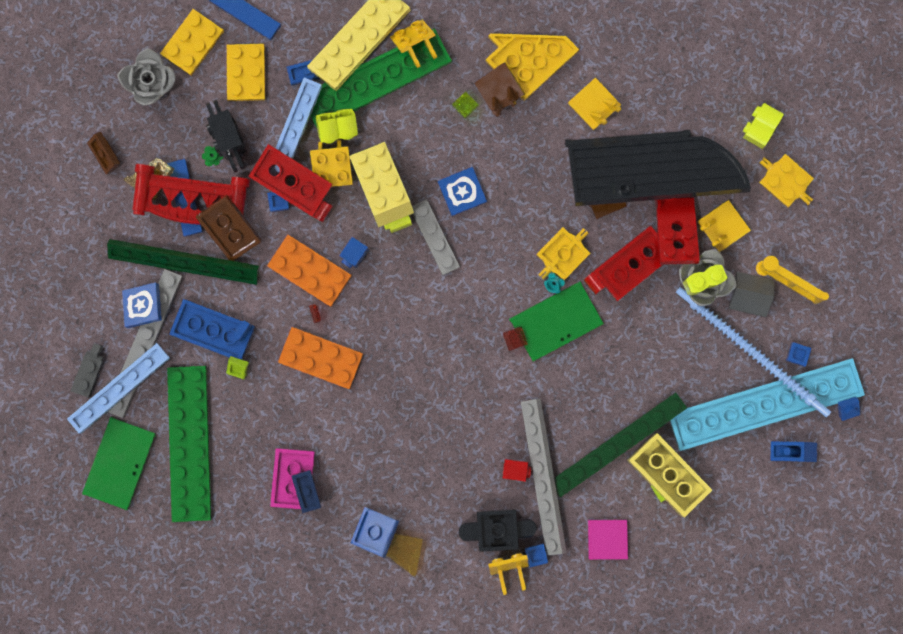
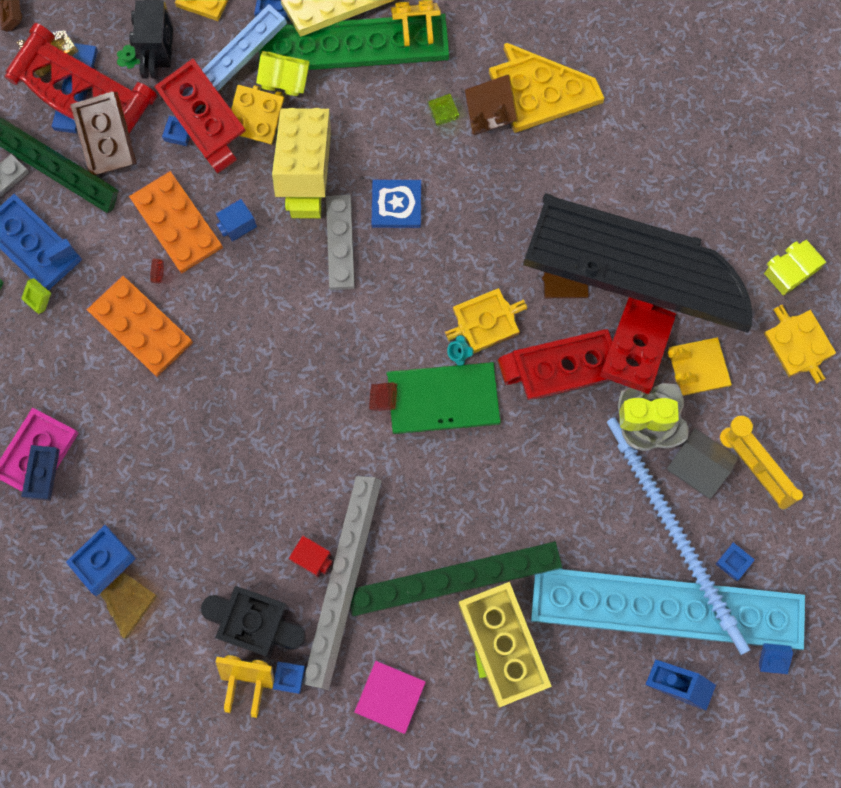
camera: 20 degrees right, 10 degrees down
(594, 104) = (597, 166): yellow plate -> none

